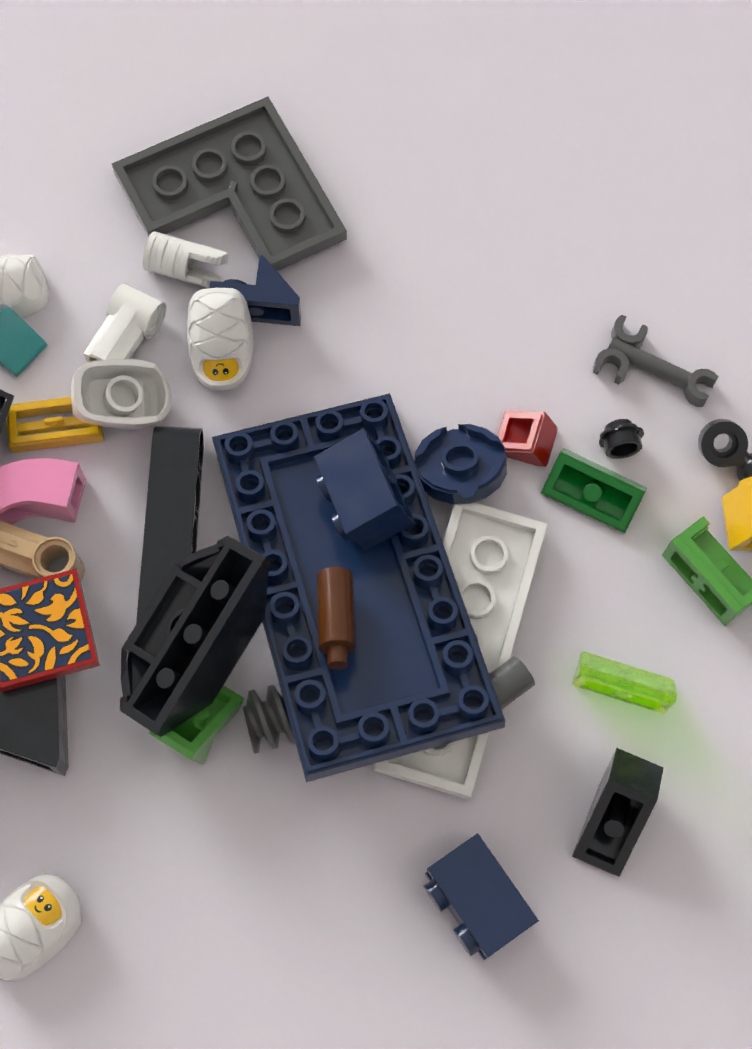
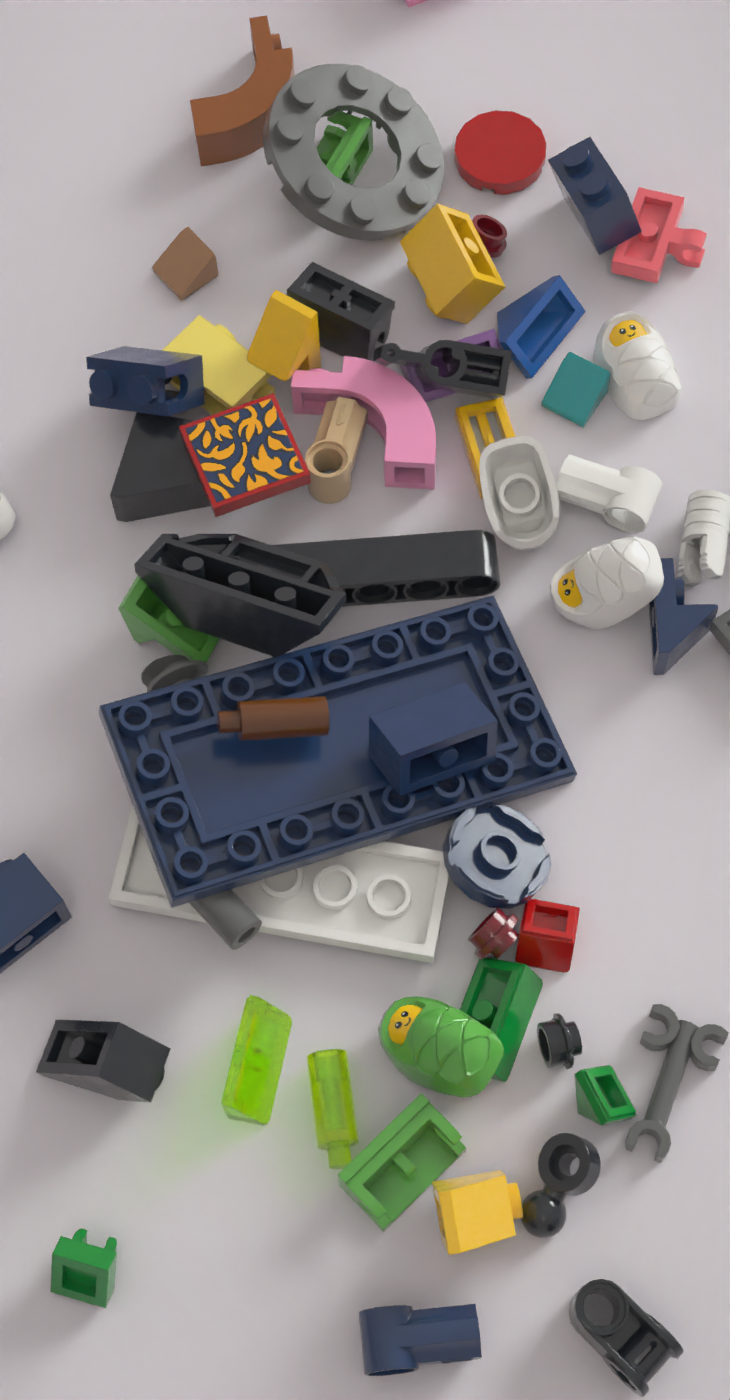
camera: 90 degrees right, 5 degrees down
(529, 474) = (494, 934): none -> dark red plate
(625, 526) = (439, 1046): none -> bright green piece
(665, 620) = (333, 1105): none -> clear neon green cylinder
(669, 413) = (602, 1096): none -> green slope

